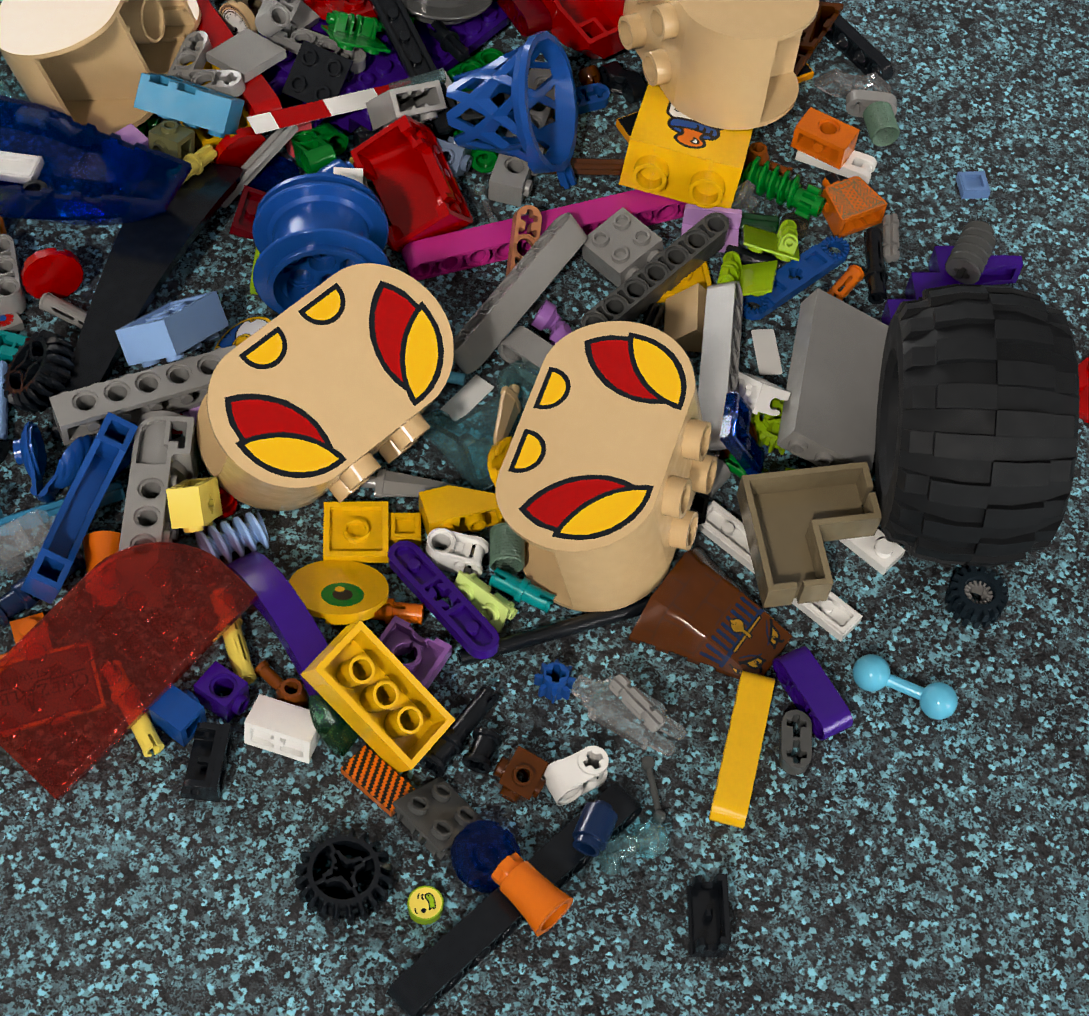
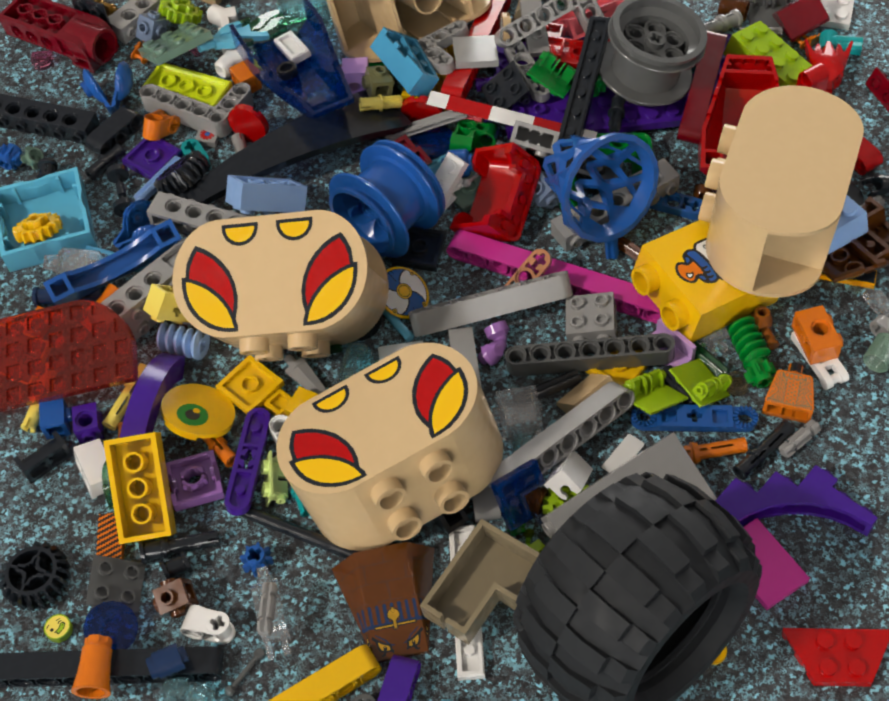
camera: 55 degrees right, 0 degrees up
(422, 78) = (565, 130): clear light blue tile -> none
(479, 189) = (545, 234): clear hinge -> none
(971, 252) = (827, 485): dark grey piece -> none

